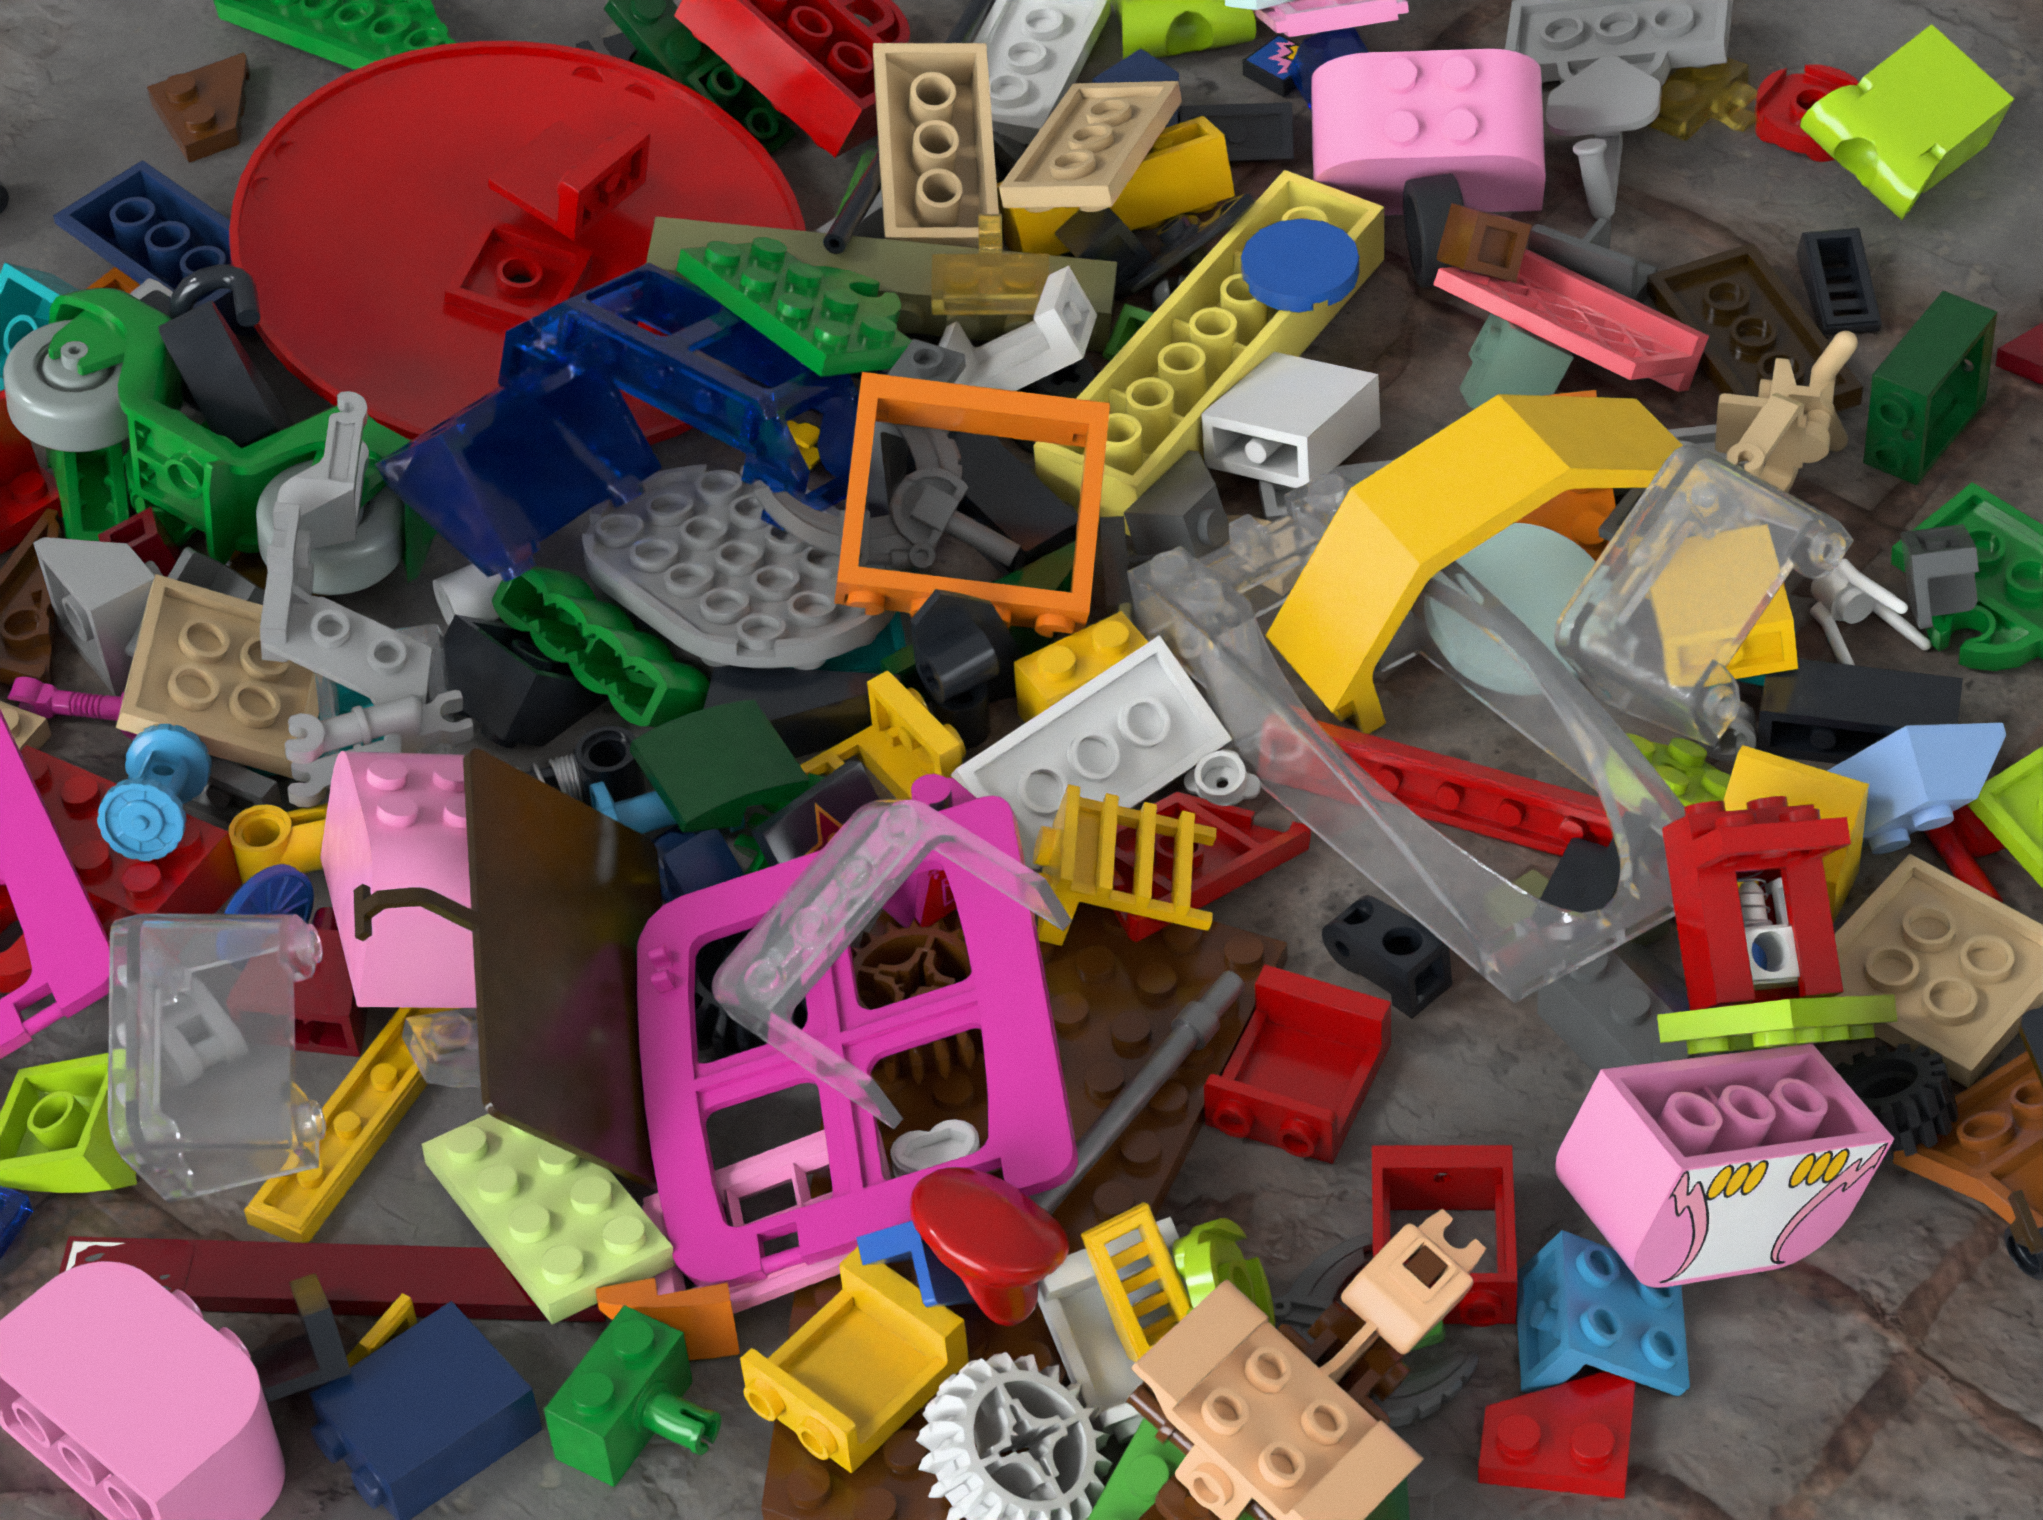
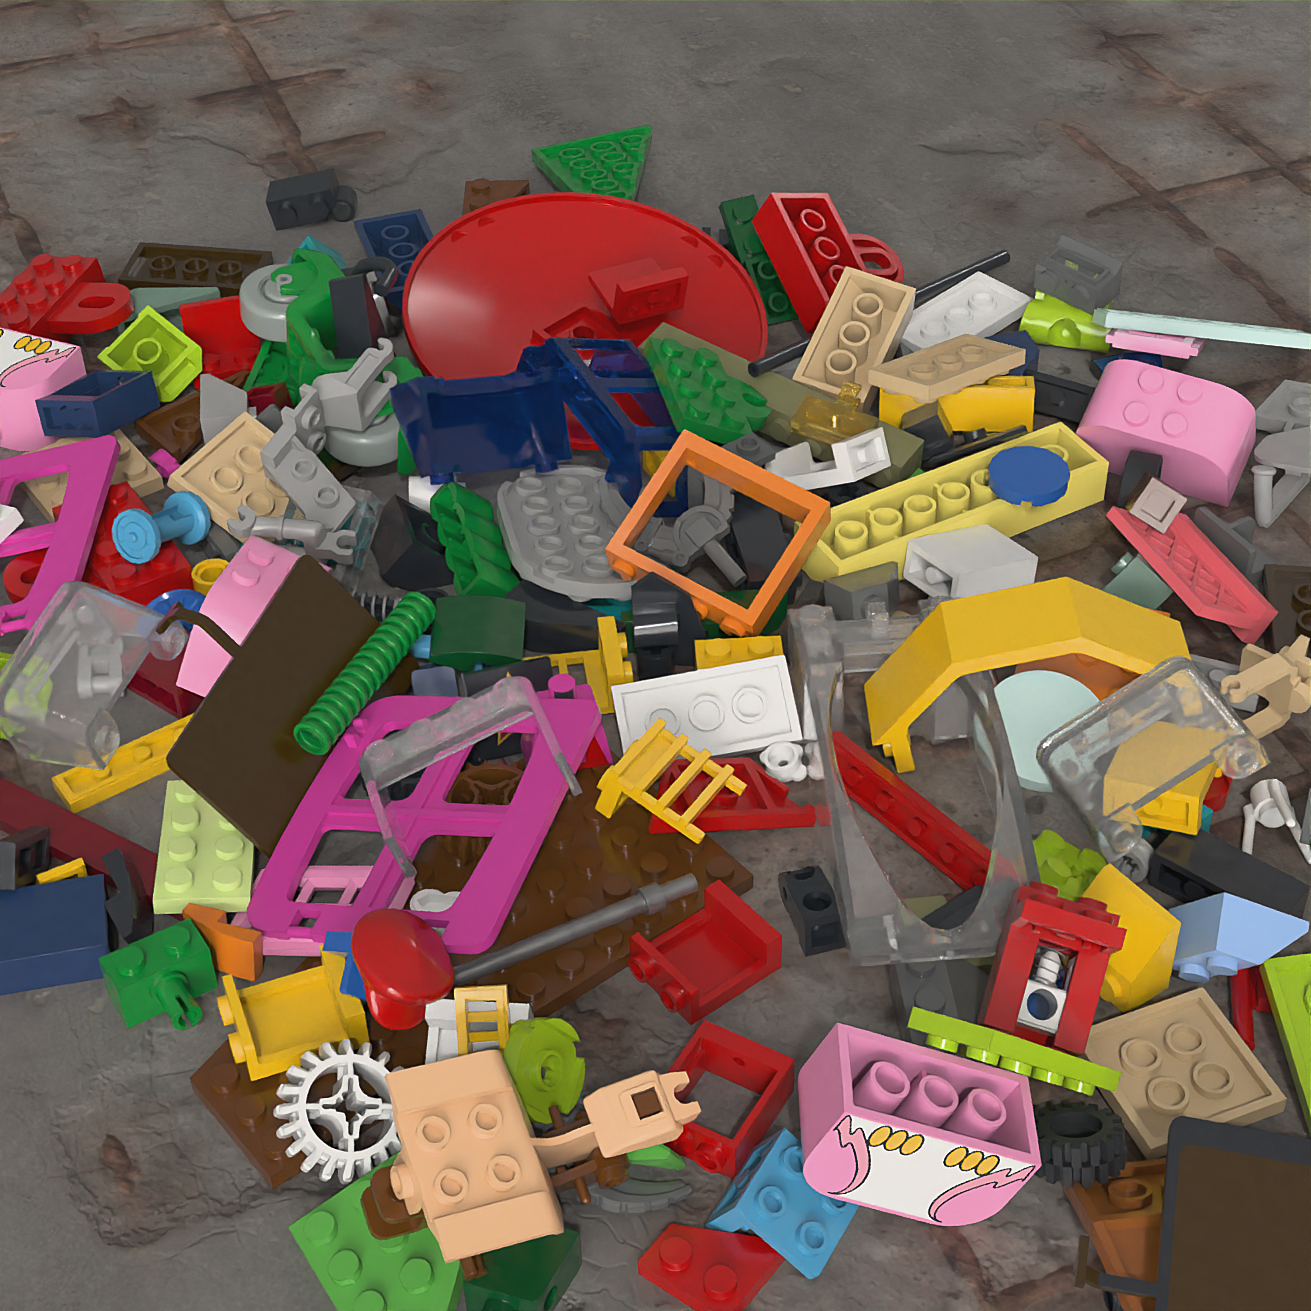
camera: 25 degrees right, 5 degrees down
(514, 1331) = (131, 906): none -> black slope
(623, 883) = (364, 673): none -> green piece

